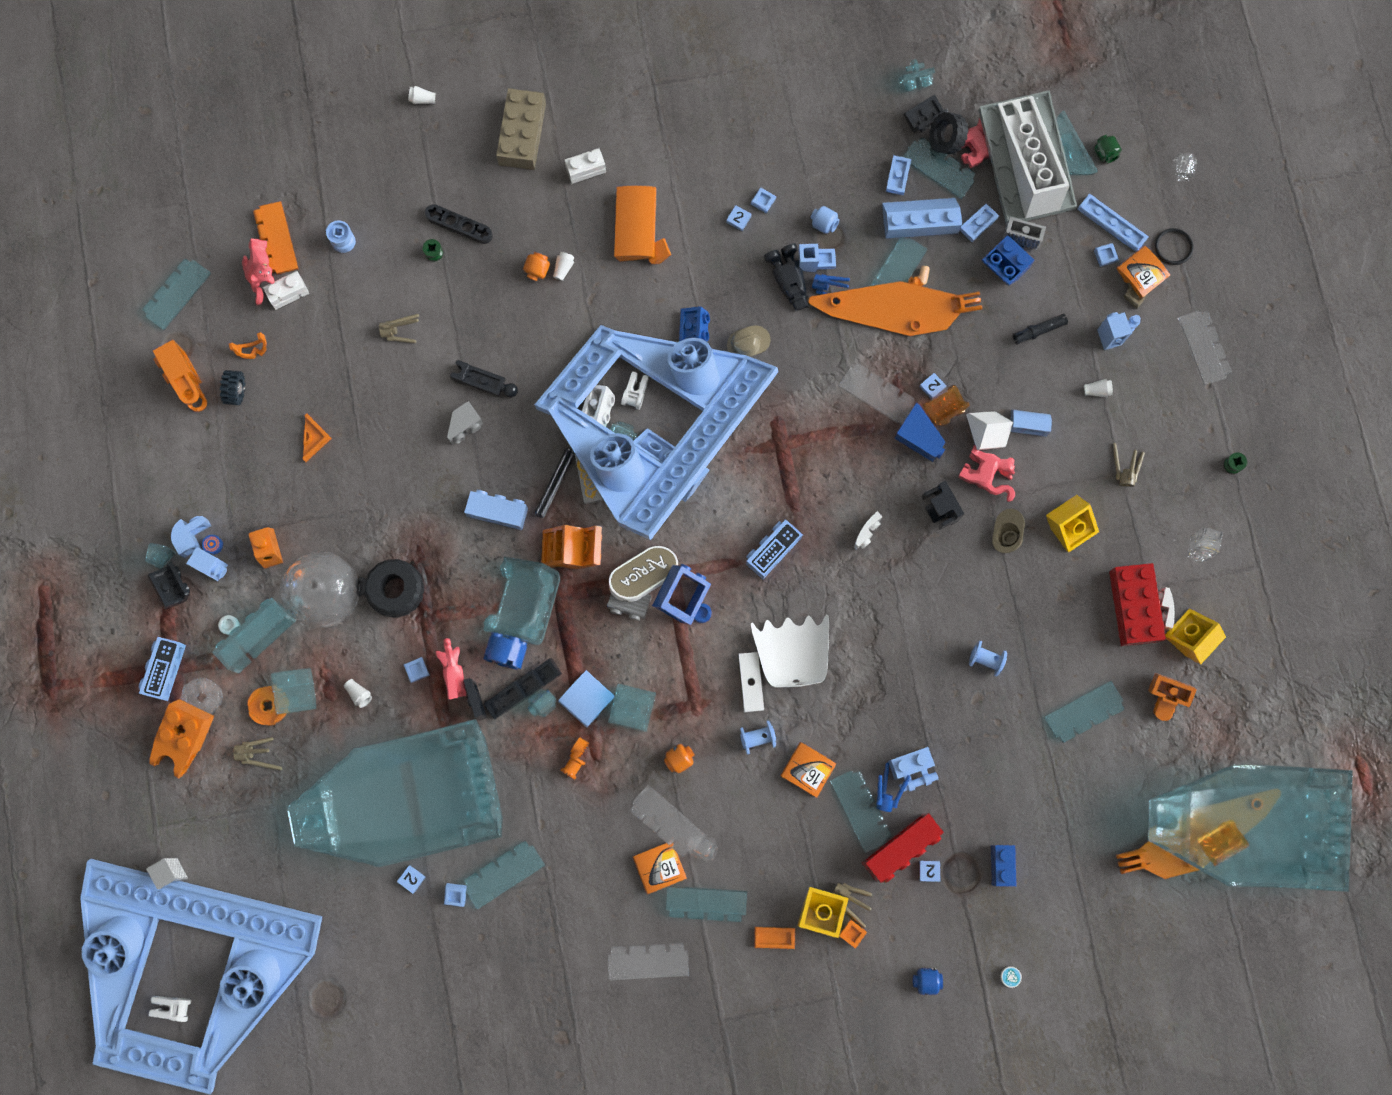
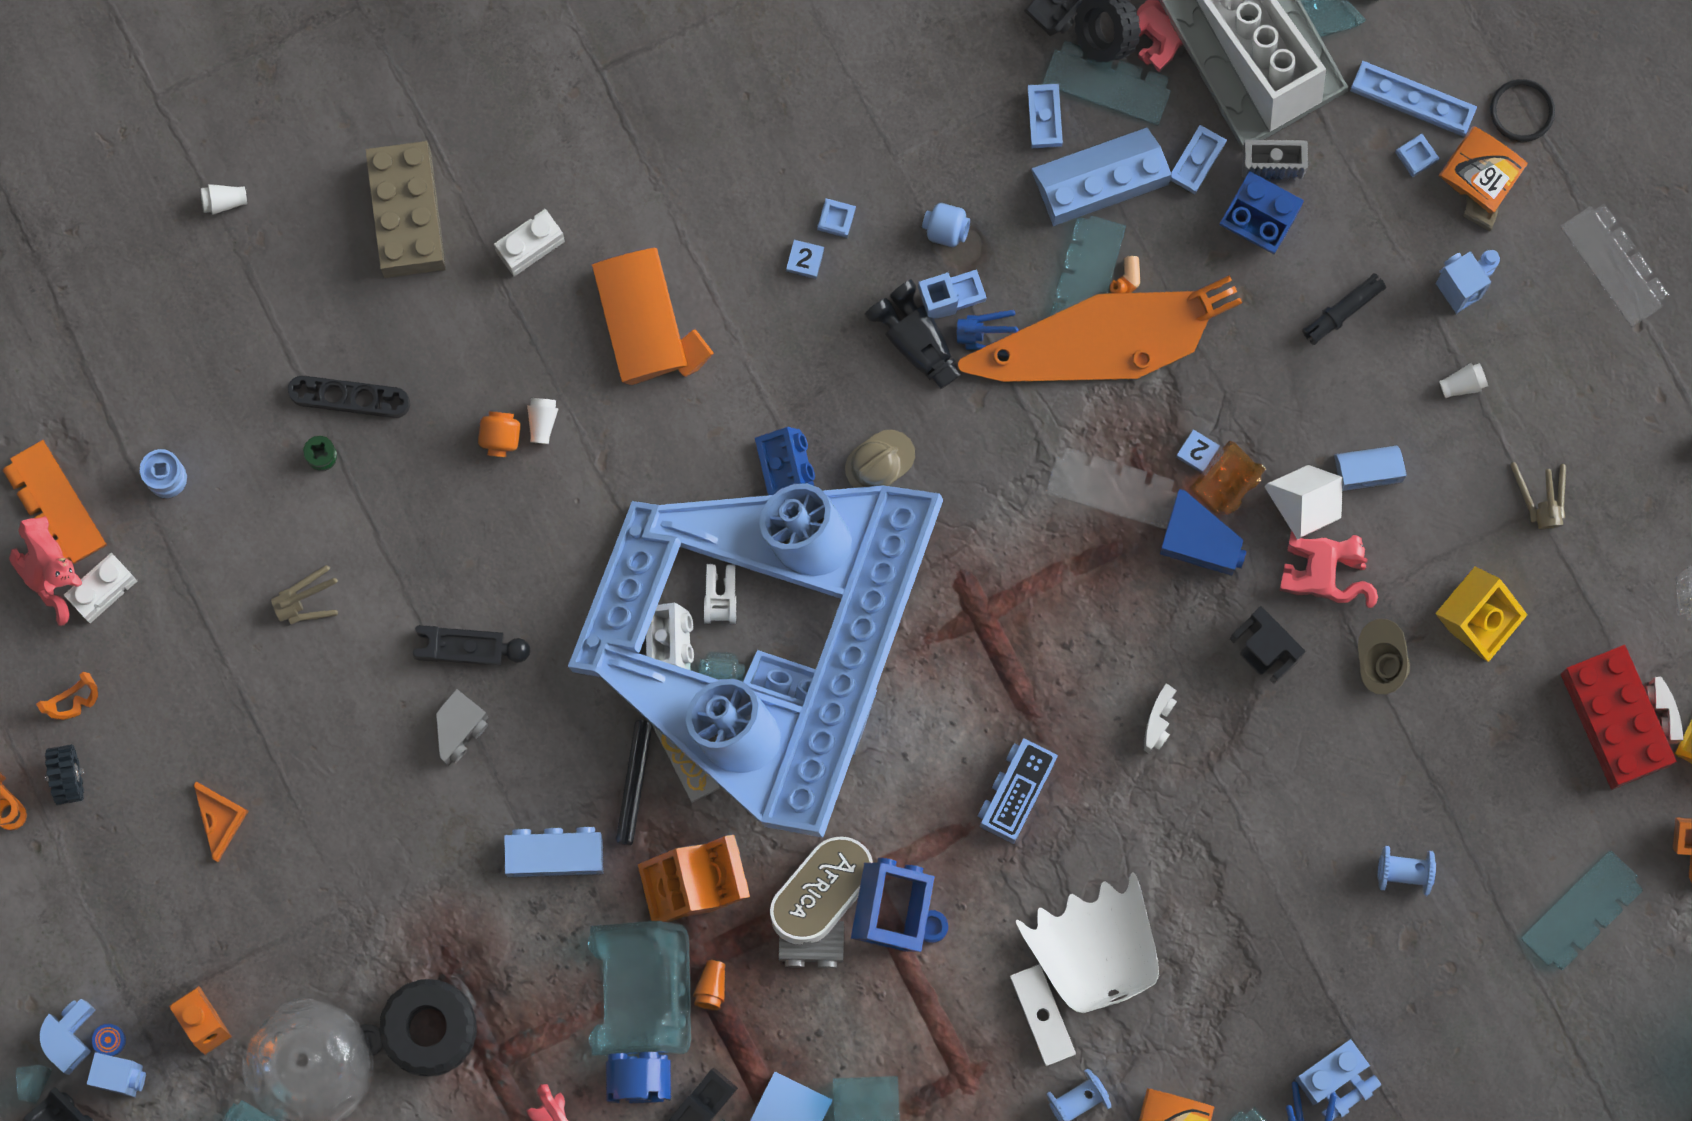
camera: 15 degrees left, 0 degrees up
(564, 611) = (711, 986): none -> orange cone

